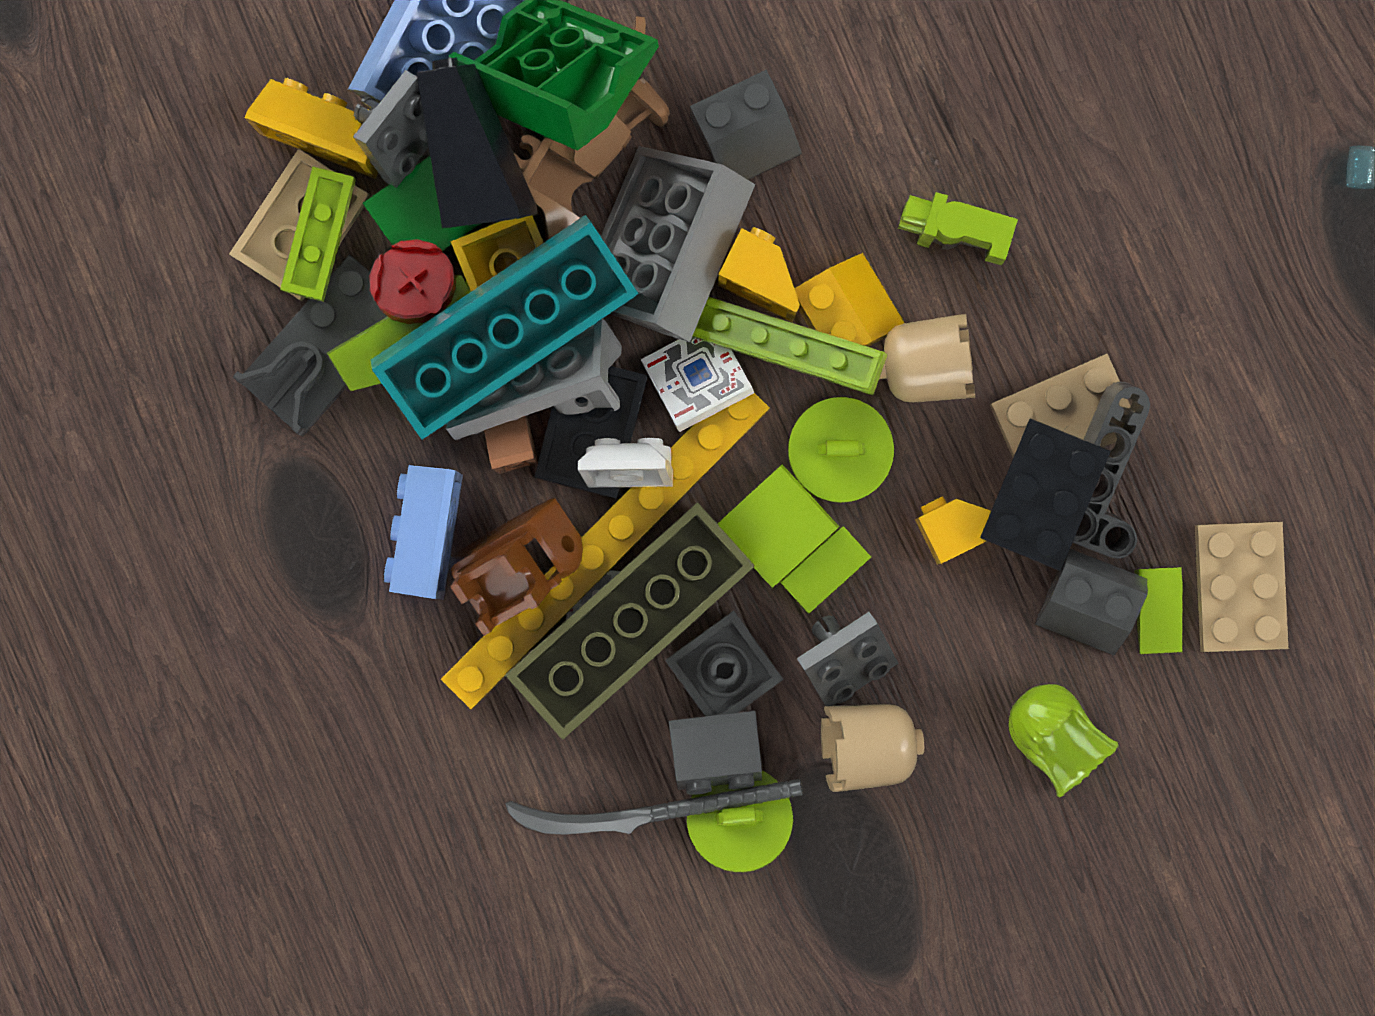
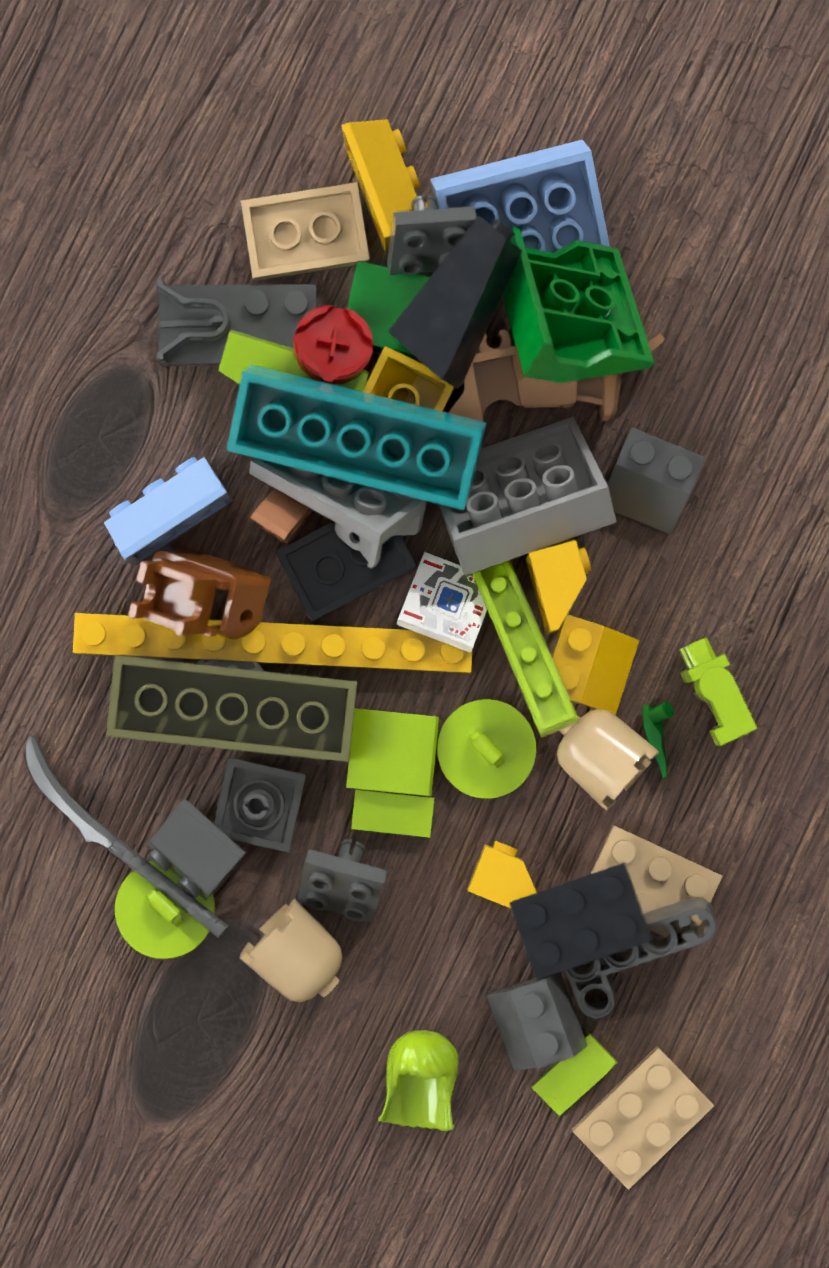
camera: 55 degrees right, 0 degrees up
(318, 234) = (309, 249): lime plate -> none
(627, 464) = (339, 609): white slope -> none
(943, 304) = (653, 728): none -> green bar

